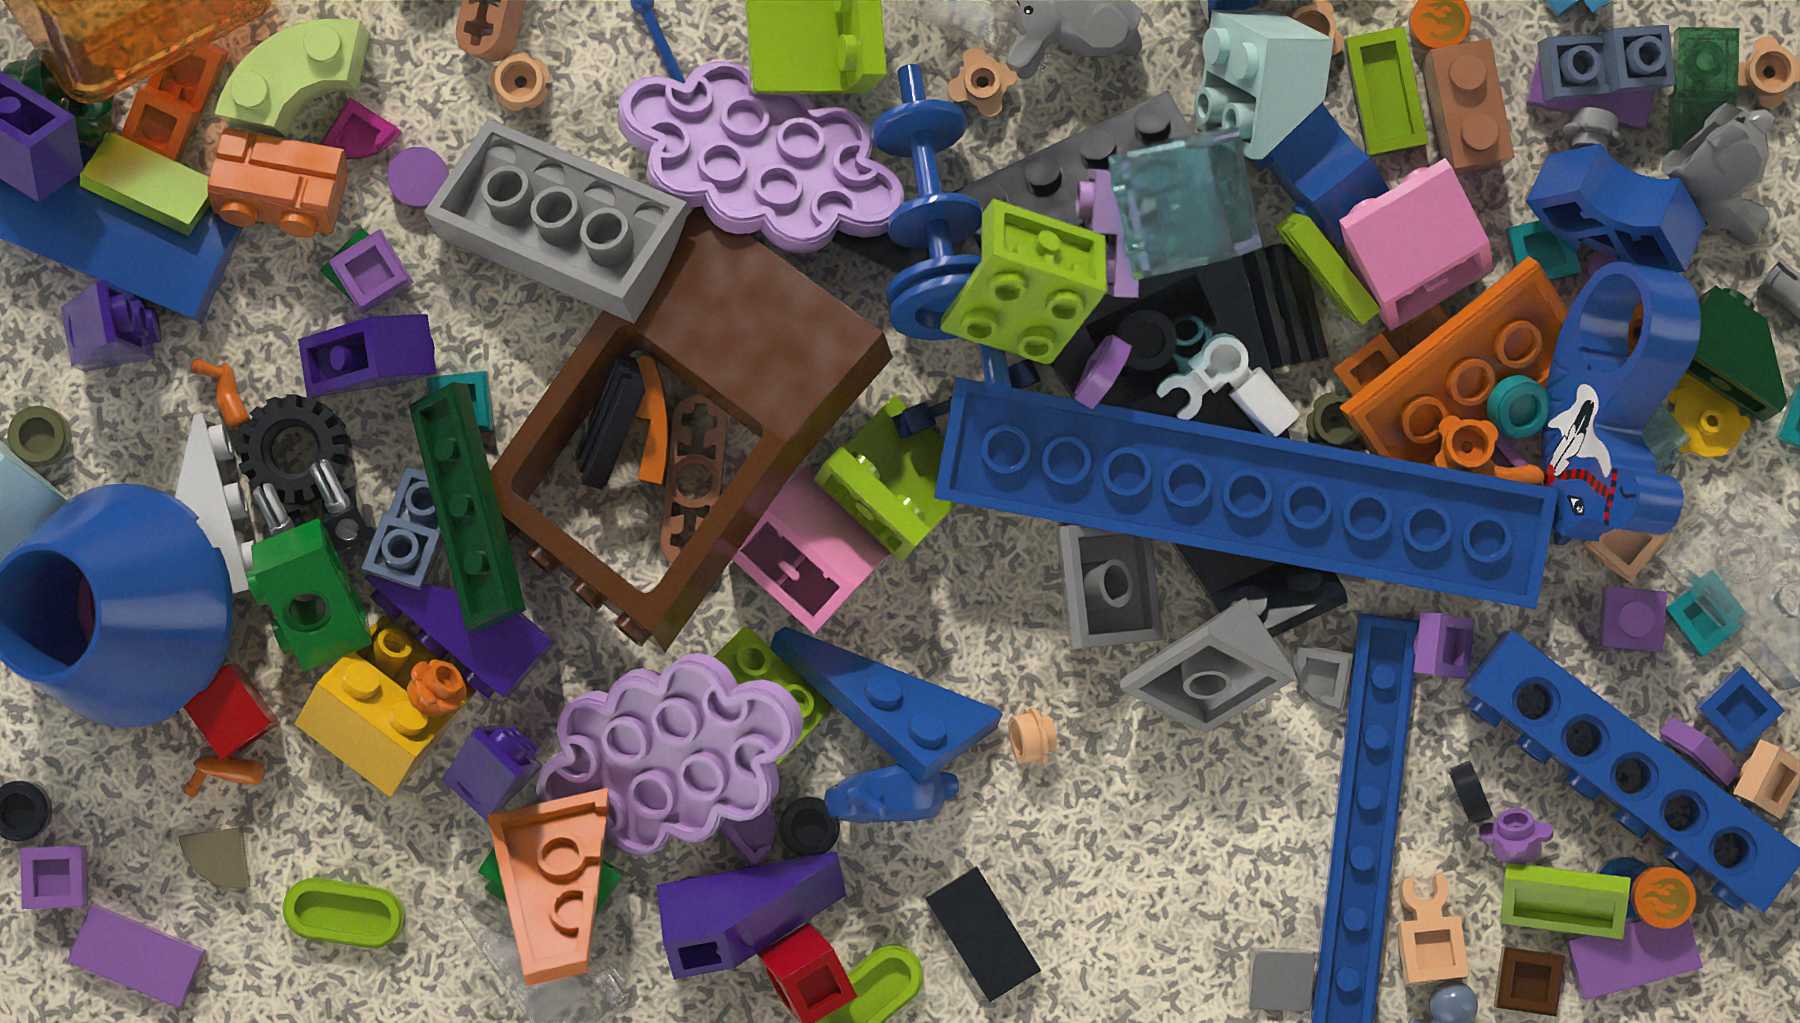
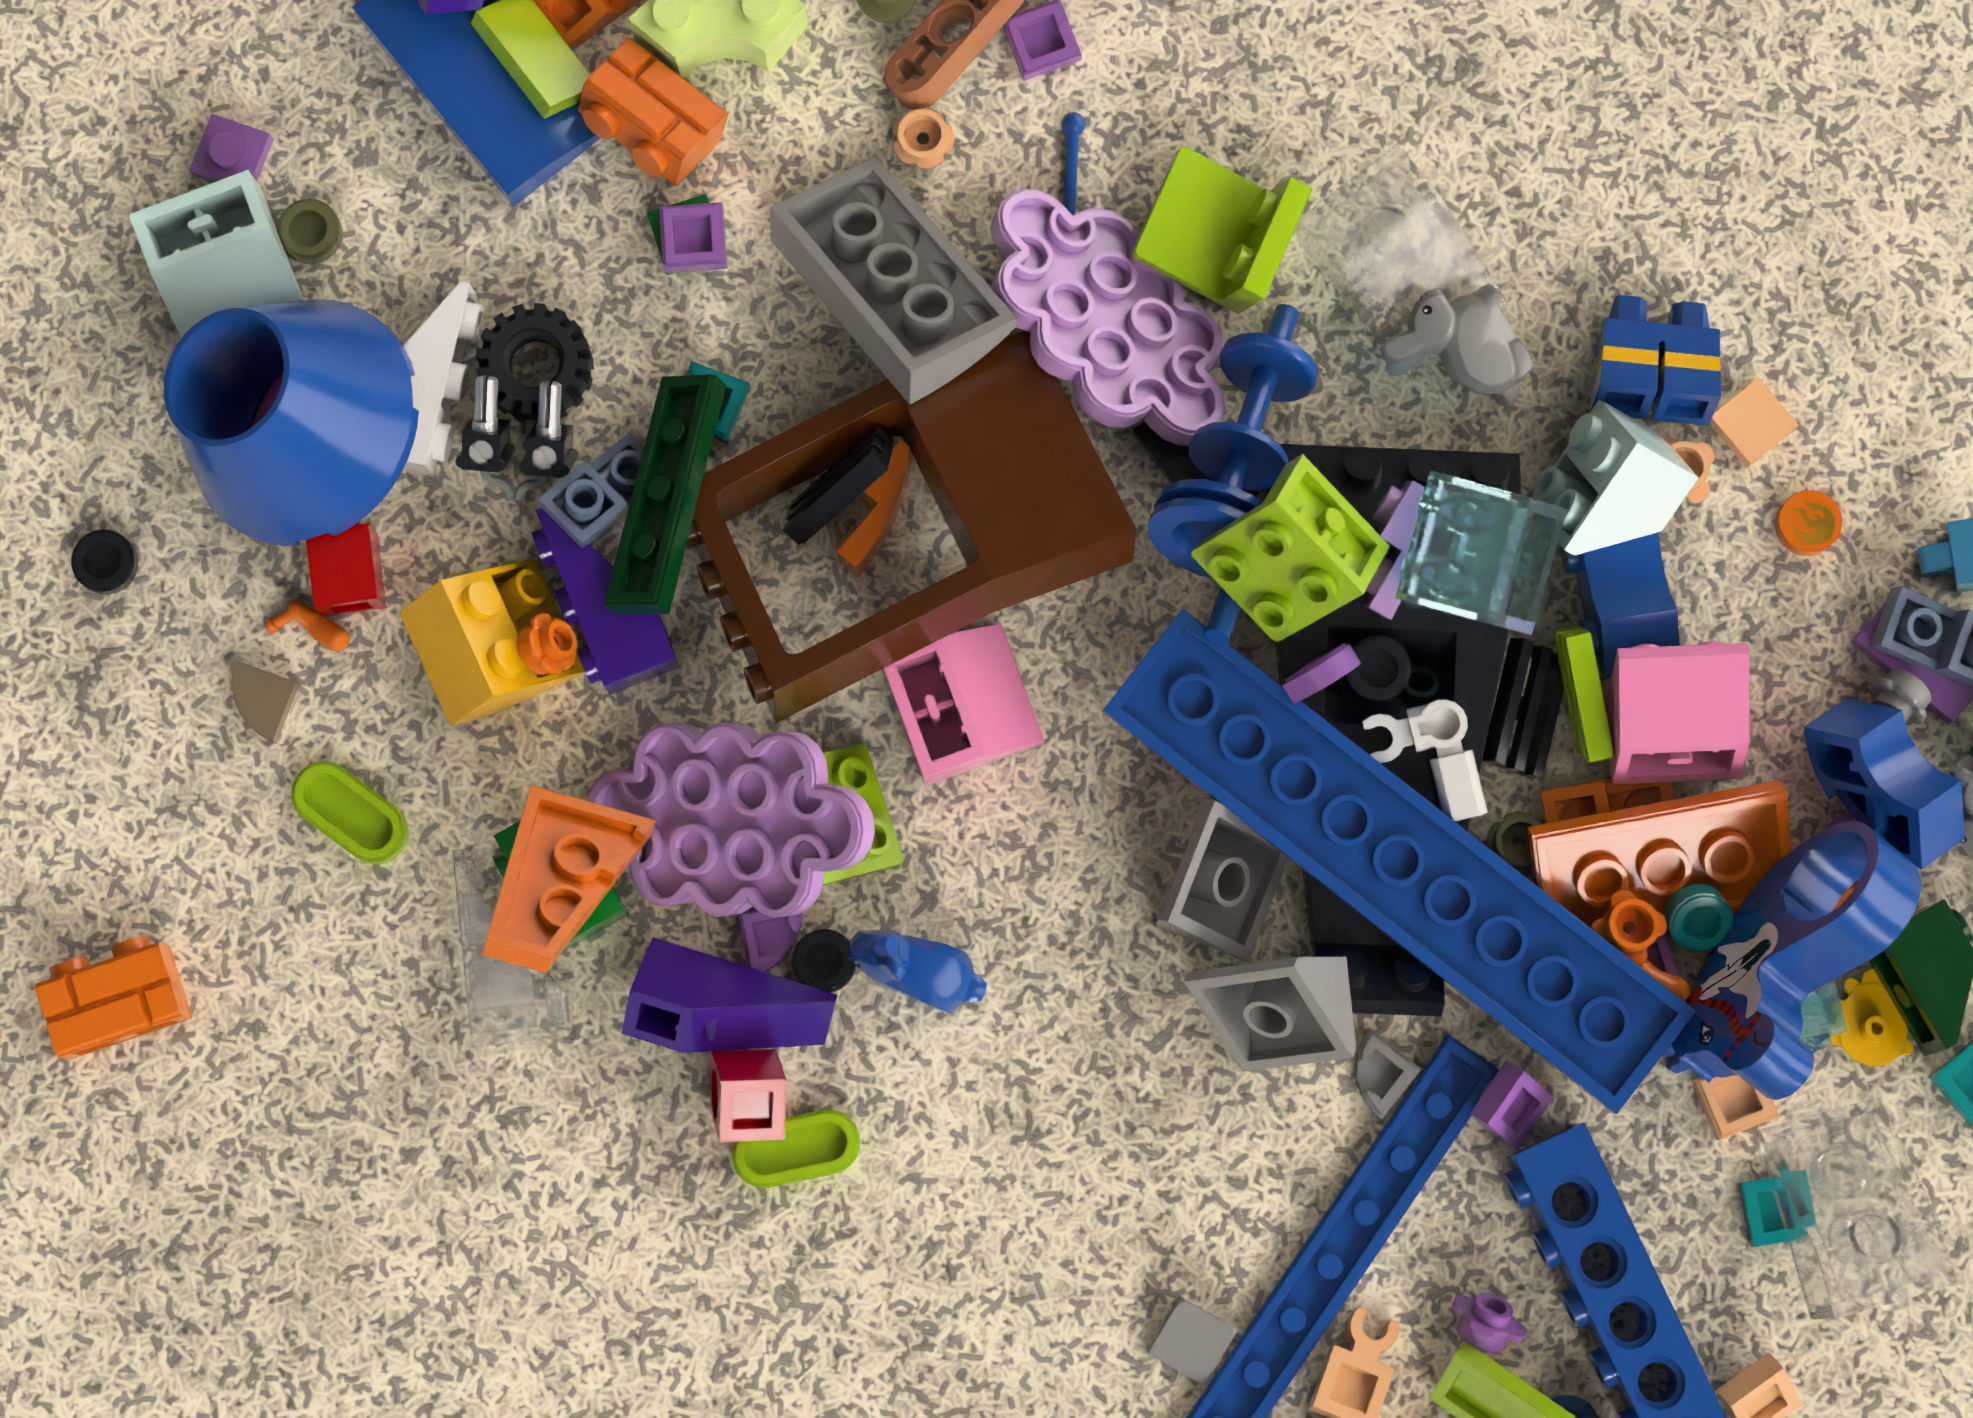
camera: 25 degrees right, 5 degrees down
(54, 877) = (102, 637): medium lavender plate -> none
(109, 328) = (427, 162): dark purple slope -> none
(136, 955) = (137, 751): medium lavender tile -> none
(226, 392) = (500, 285): orange piece -> none
(308, 563) = (491, 466): green brick -> none
(360, 131) = (752, 108): dark pink tile -> none
(367, 354) = (649, 311): dark purple slope -> none
(416, 176) = (781, 173): medium lavender tile -> none
(492, 767) = (559, 744): dark purple slope -> none
(684, 434) = (901, 538): nougat beam -> none
(888, 481) = (1069, 675): lime bracket -> none
(903, 714) = (967, 901): blue wing -> none
(921, 416) = (1130, 634): dark blue piece -> none
(966, 88) = (1343, 374): light nougat plate -> none
(983, 934) = (933, 1148): black tile -> none
(1032, 737) = (1077, 987): light nougat plate -> none
(1386, 92) = (1724, 562): lime tile -> none
(1467, 107) = (1794, 613): nougat brick -> none
(1470, 792) = (1464, 1258): black tile -> none
(1542, 245) = (1804, 793): teal tile -> none
(1632, 619) = (1704, 1177): medium lavender plate -> none
(1700, 749) = (1708, 1334): medium lavender tile -> none
(1739, 709) = (1763, 1315): blue plate -> none

